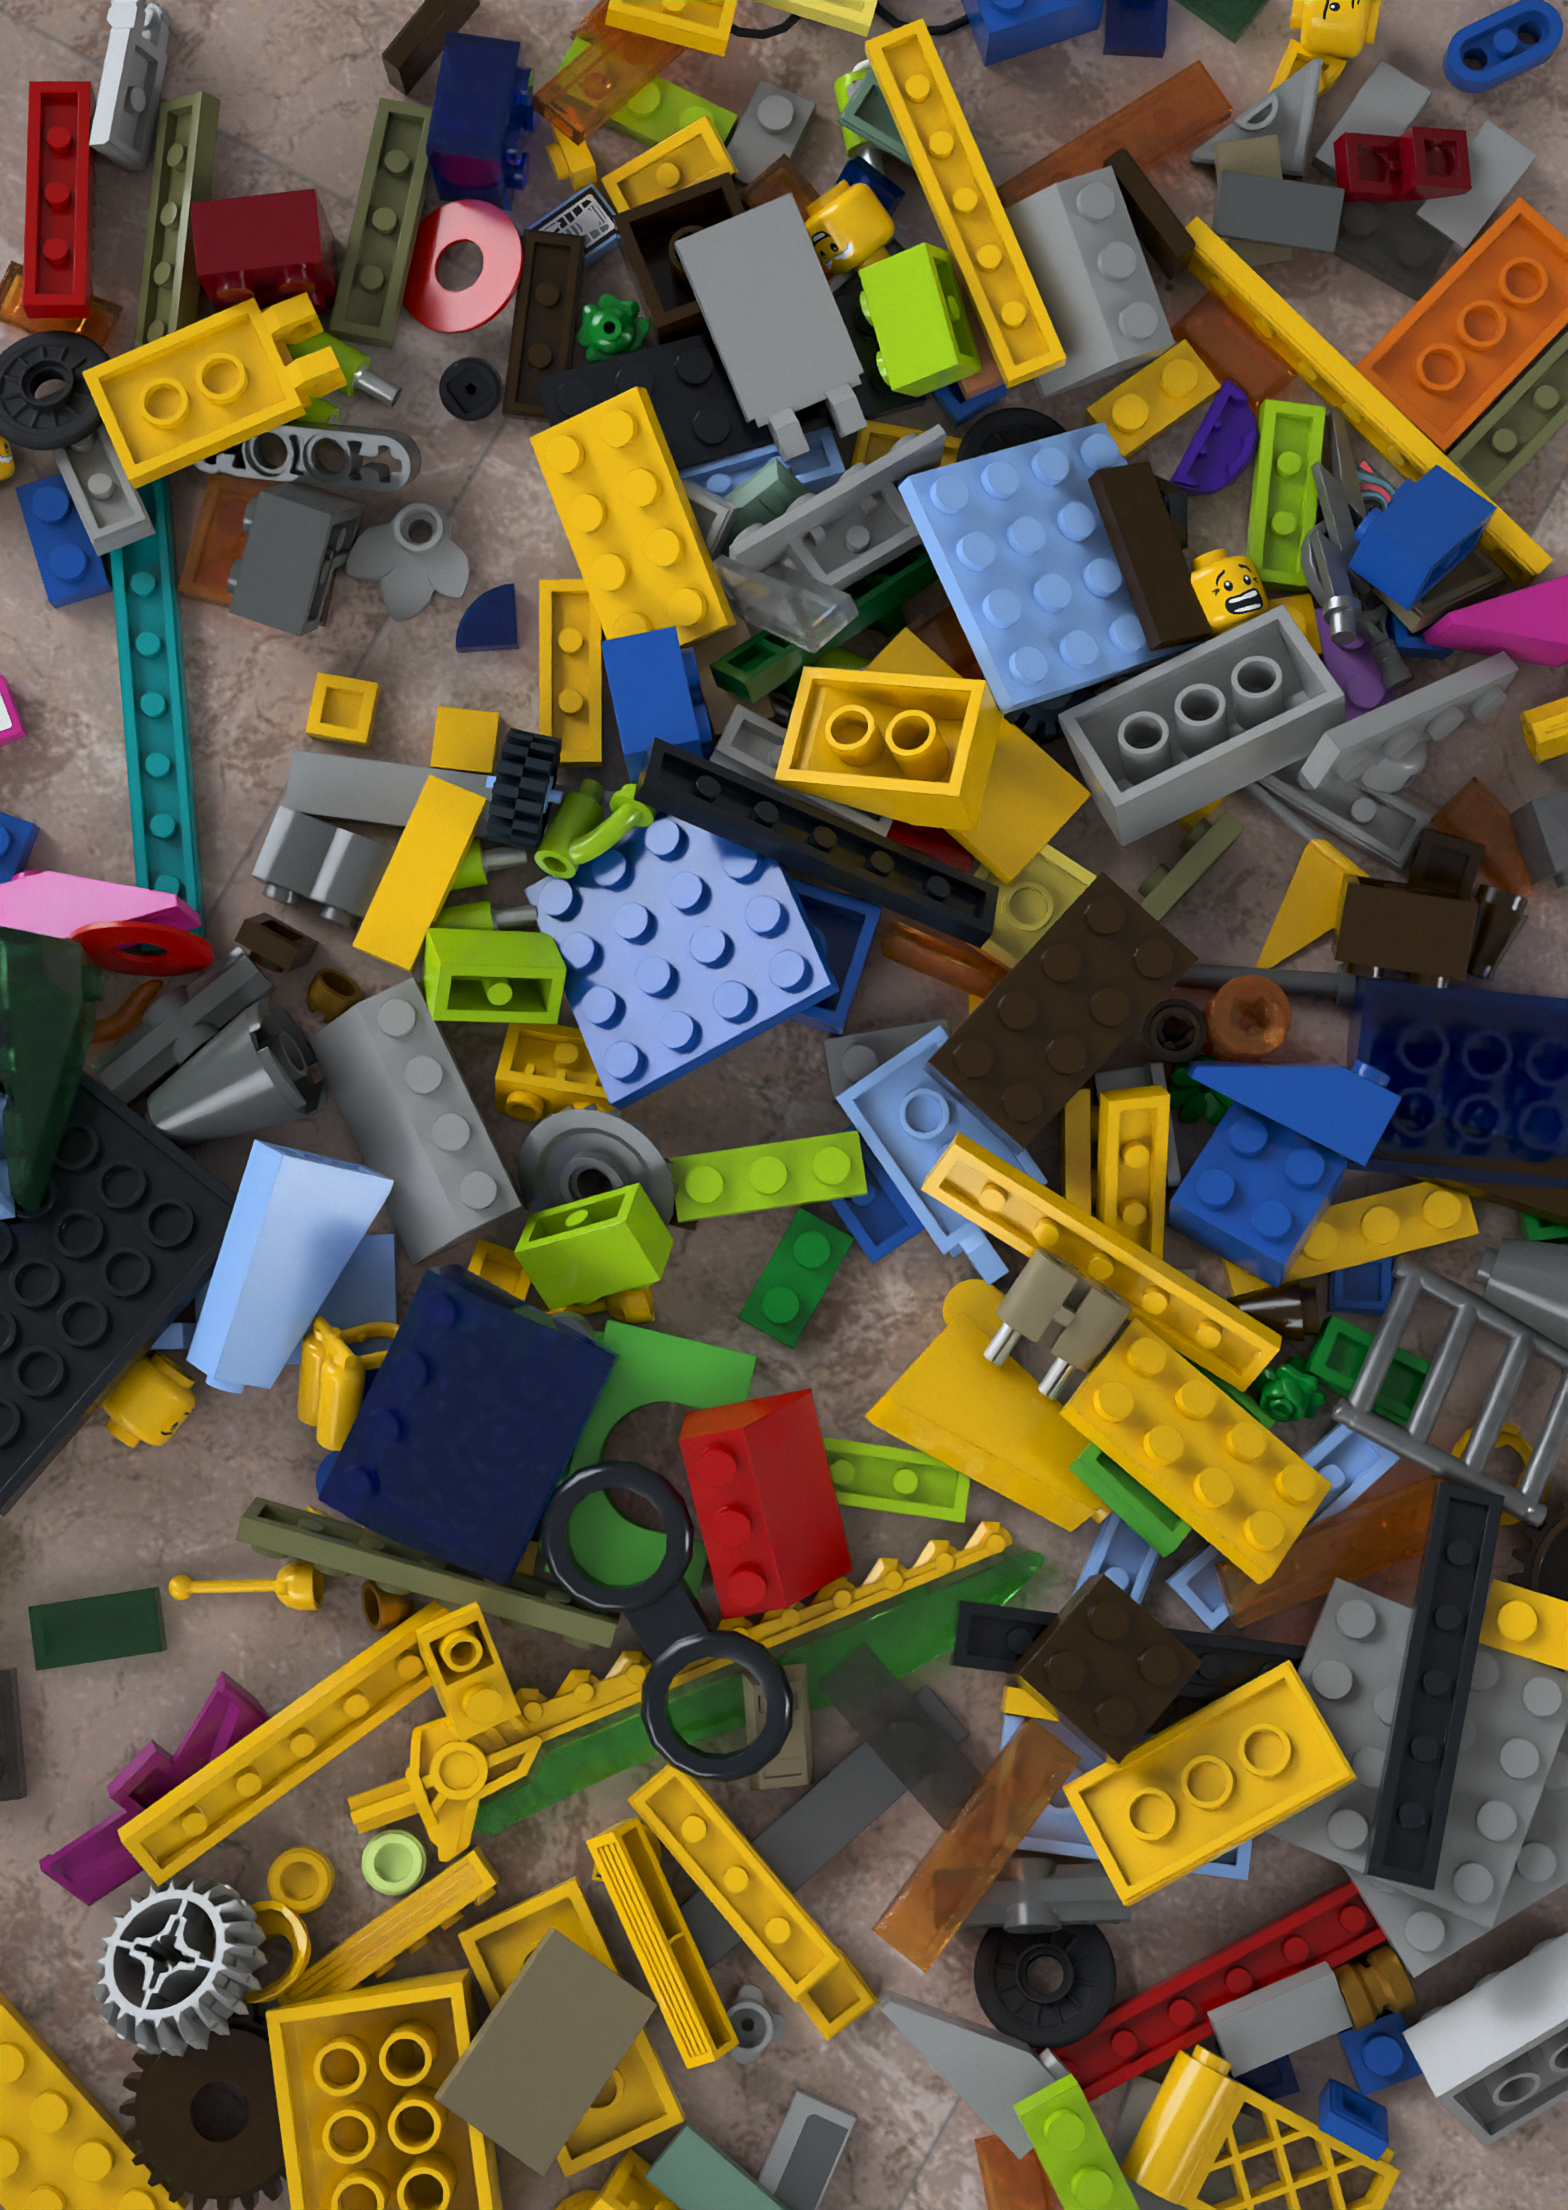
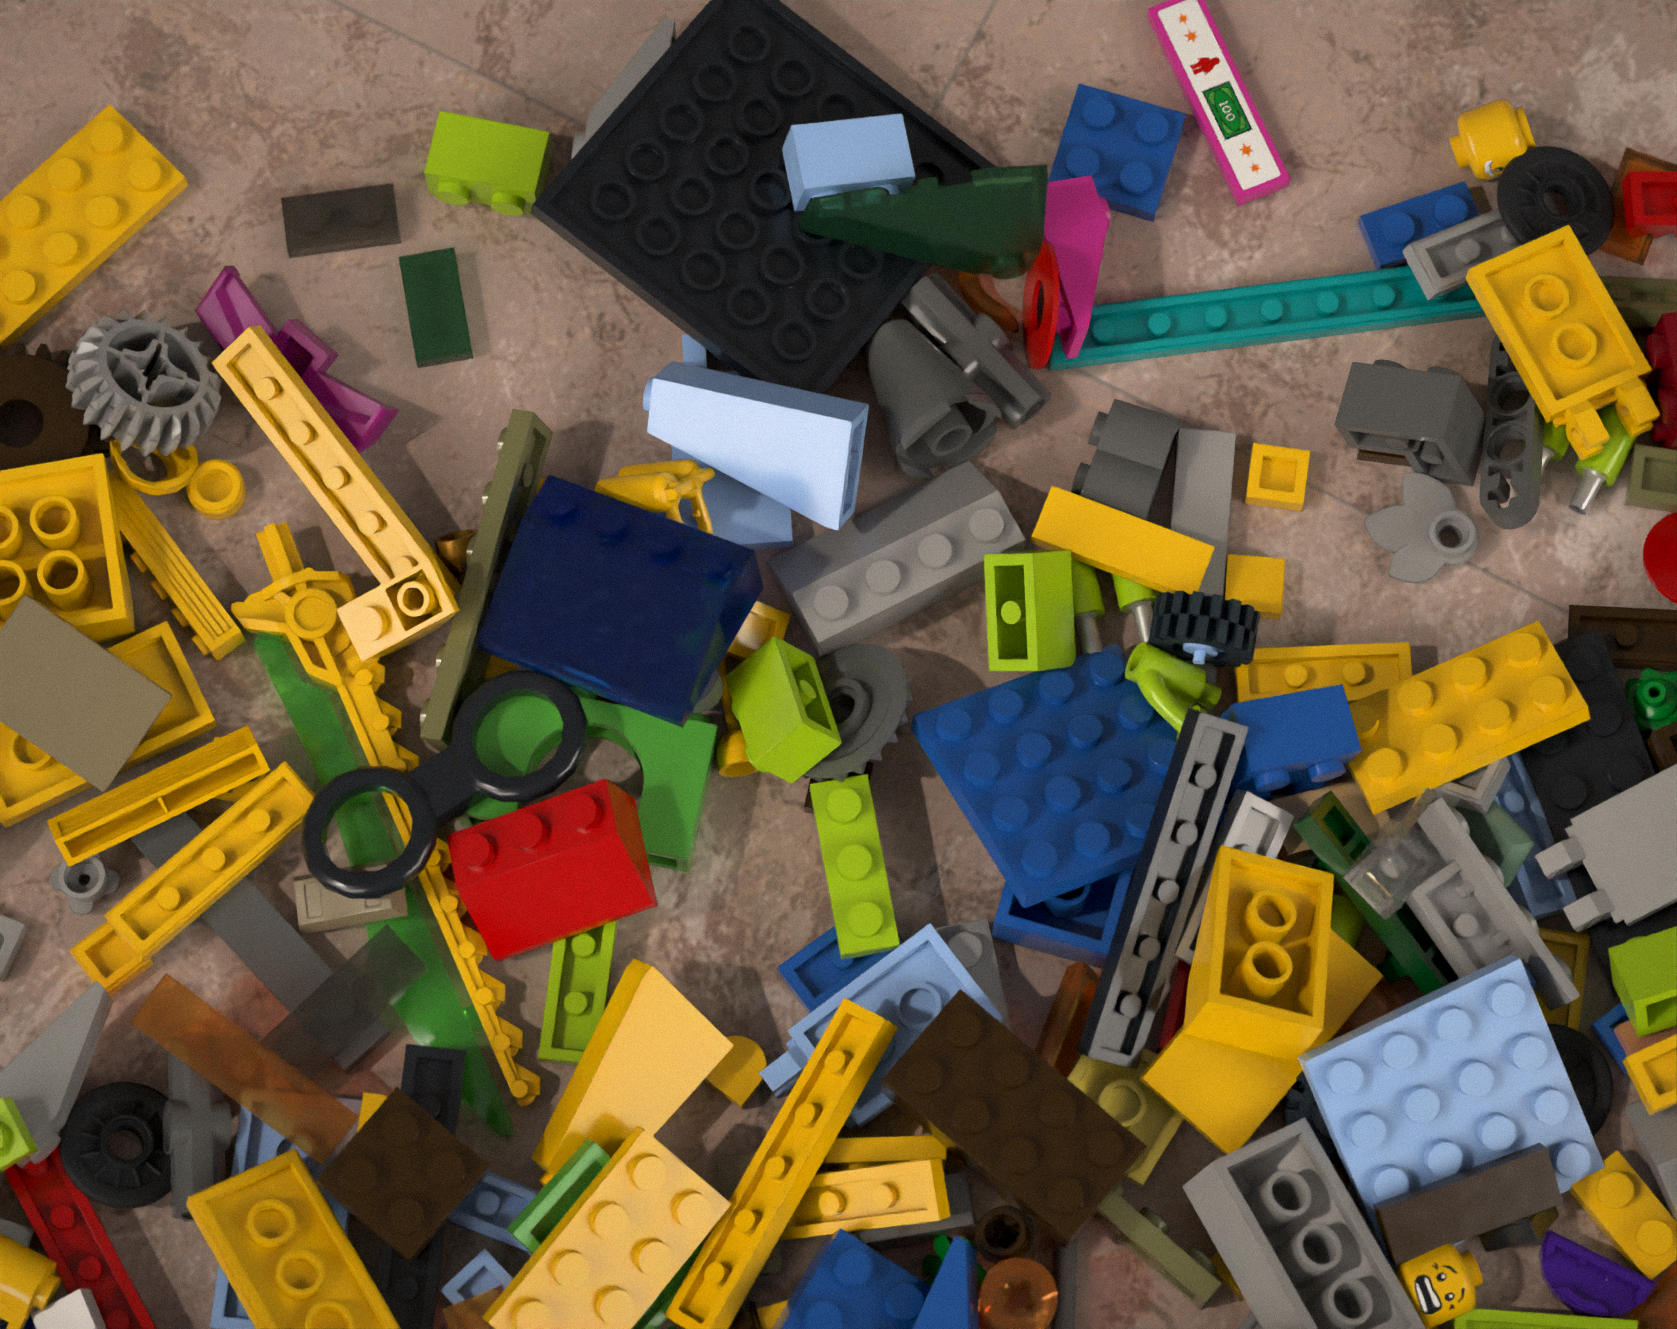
camera: 85 degrees right, 10 degrees down
(150, 1402) = (636, 338): yellow head -> none
(217, 541) = (1423, 351): clear orange plate -> none
(275, 943) = (1055, 425): dark brown plate -> none
(296, 1586) = (475, 468): yellow hinge -> none
(331, 993) = (1012, 477): pearl gold hinge -> none
(395, 1860) = (232, 568): yellowish green tile -> none
(471, 388) = (1590, 575): black tile -> none
(490, 622) = (1369, 604): clear blue tile -> none
(545, 1072) = (944, 664): yellow bracket -> none
(796, 1278) = (762, 902): green plate -> none
(1061, 1311) = (733, 1131): dark tan piece -> none

